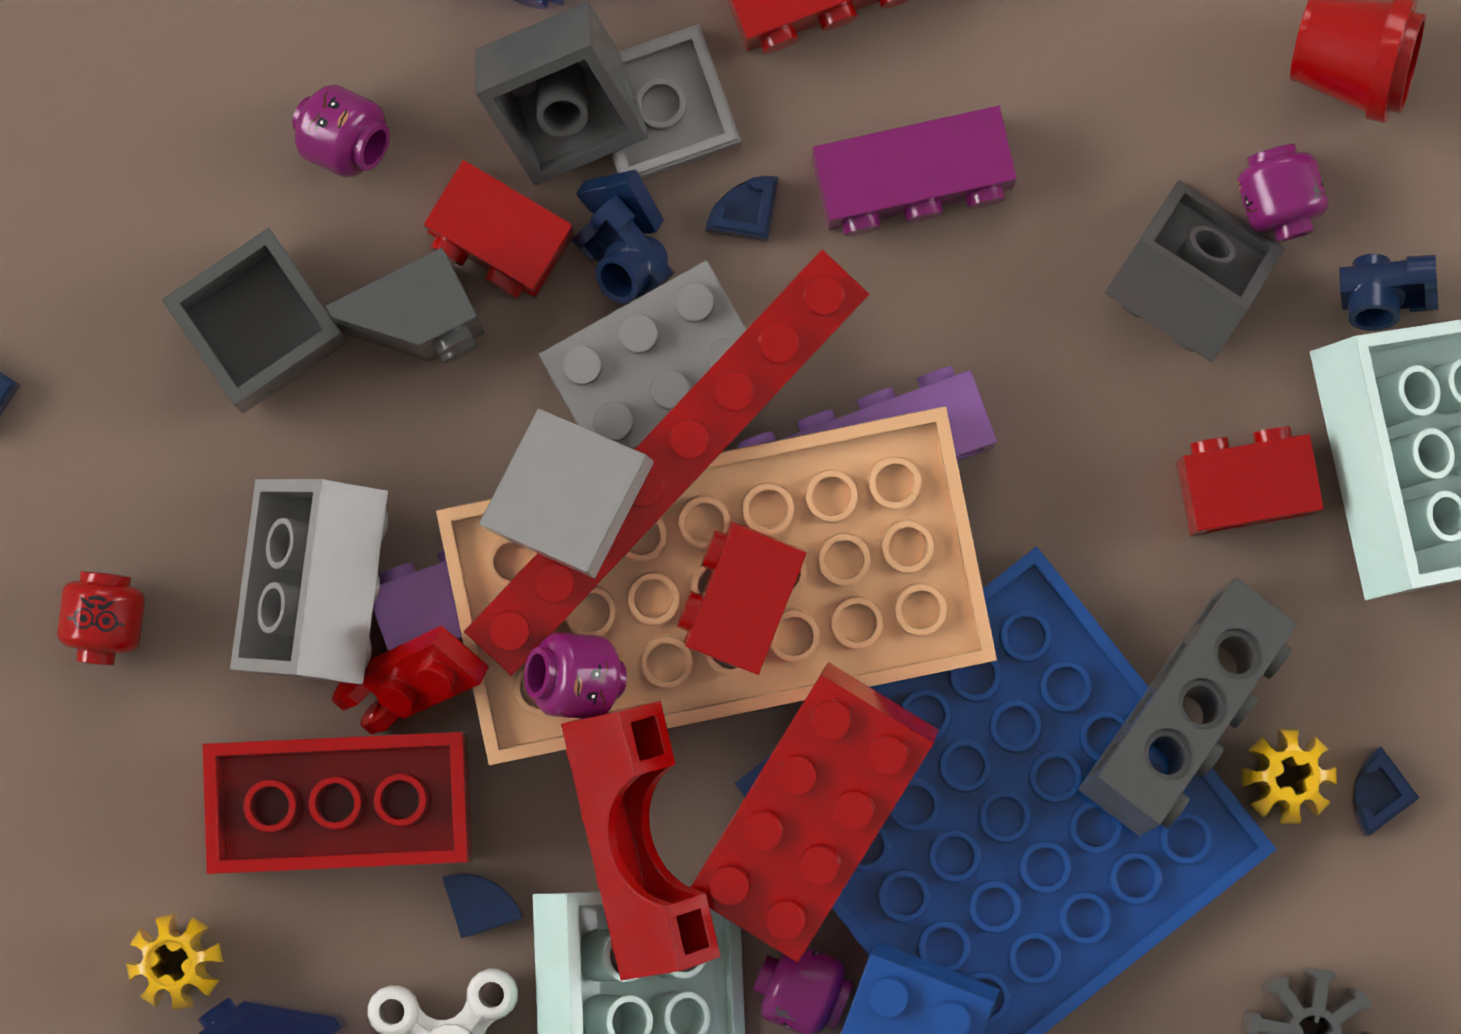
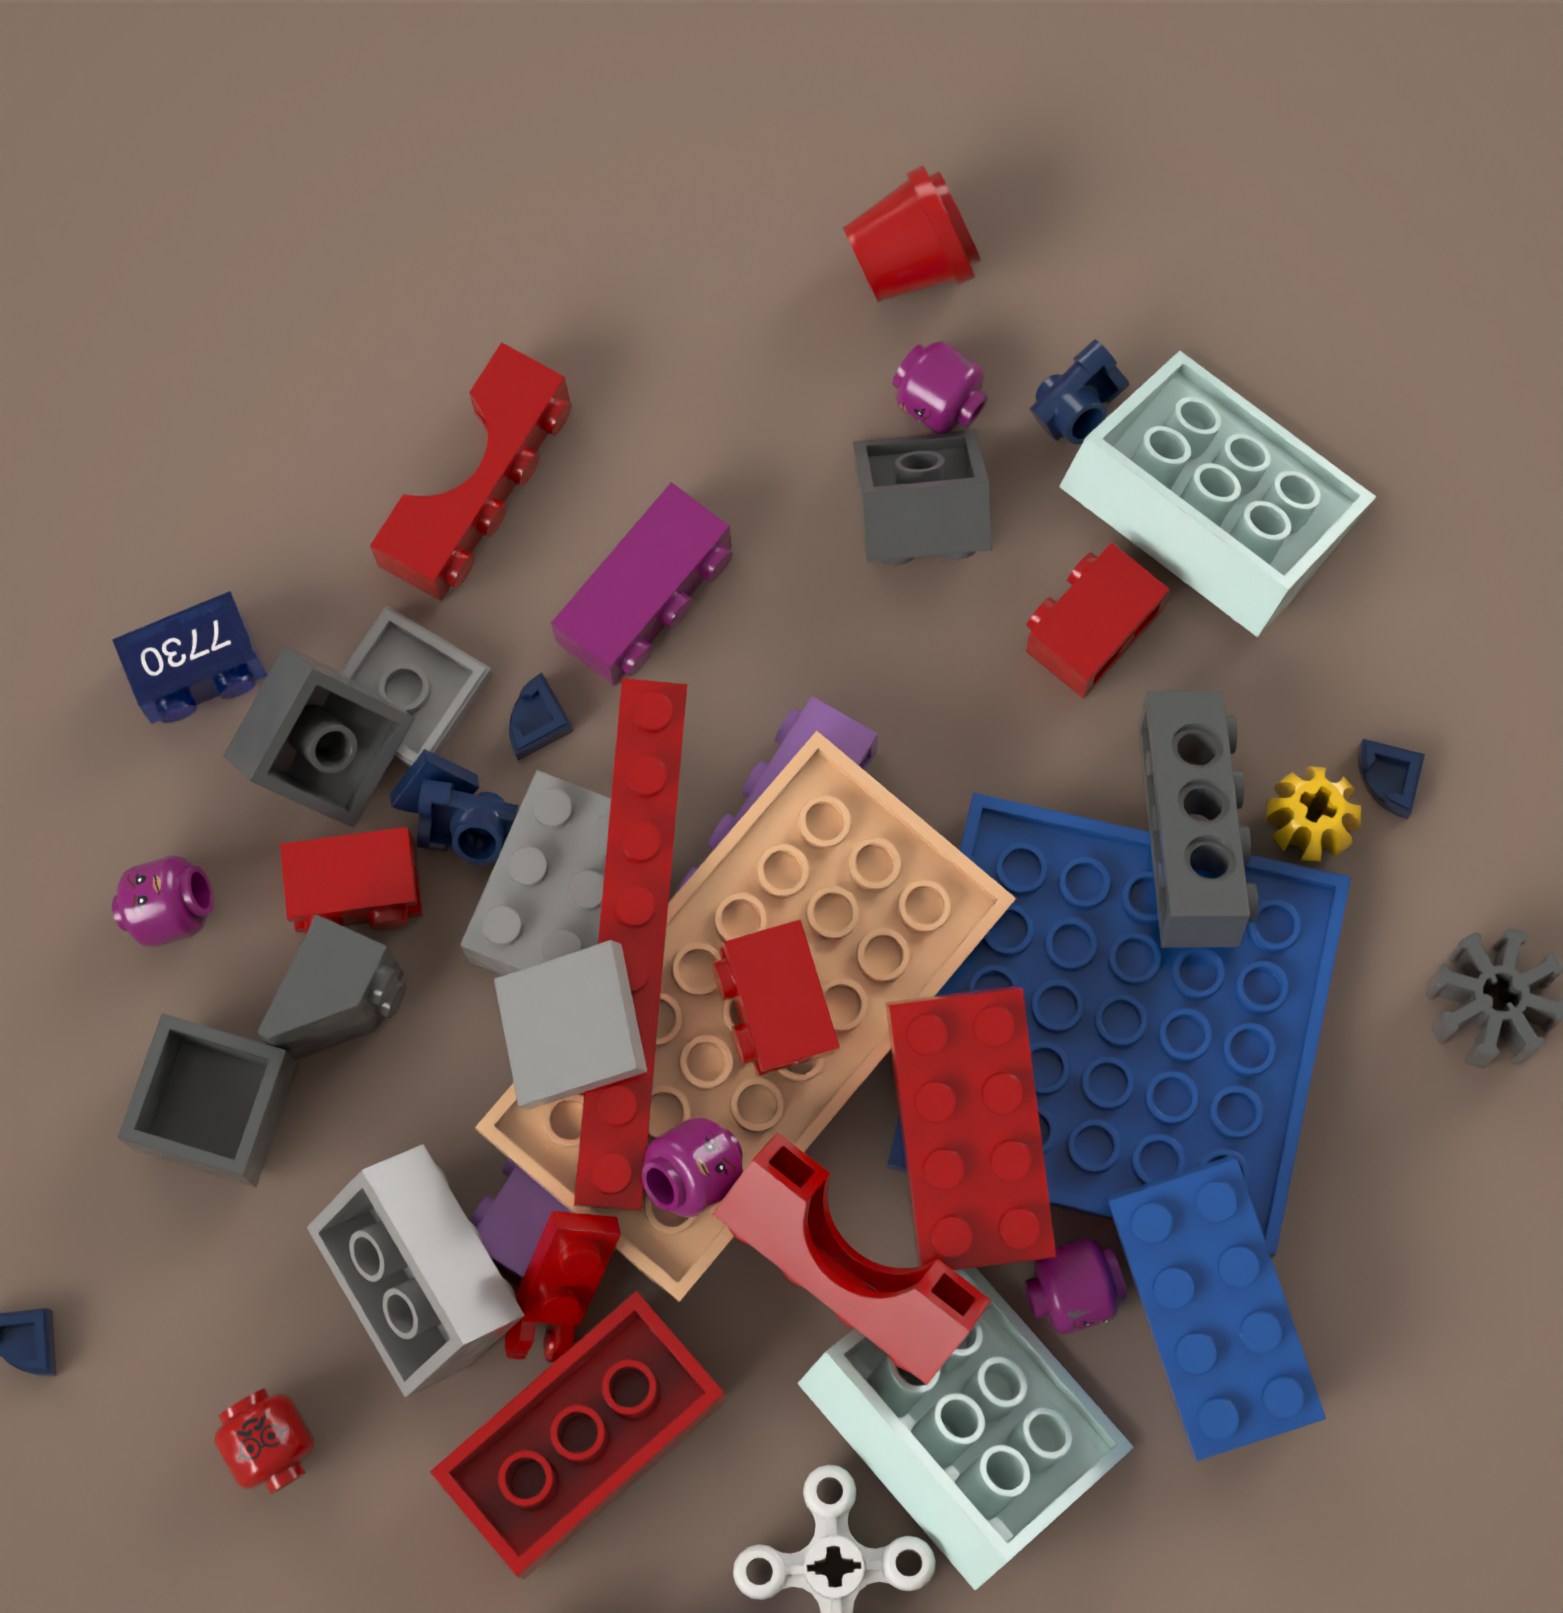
camera: 35 degrees left, 10 degrees down
(479, 903) = (760, 1428): dark blue tile -> none

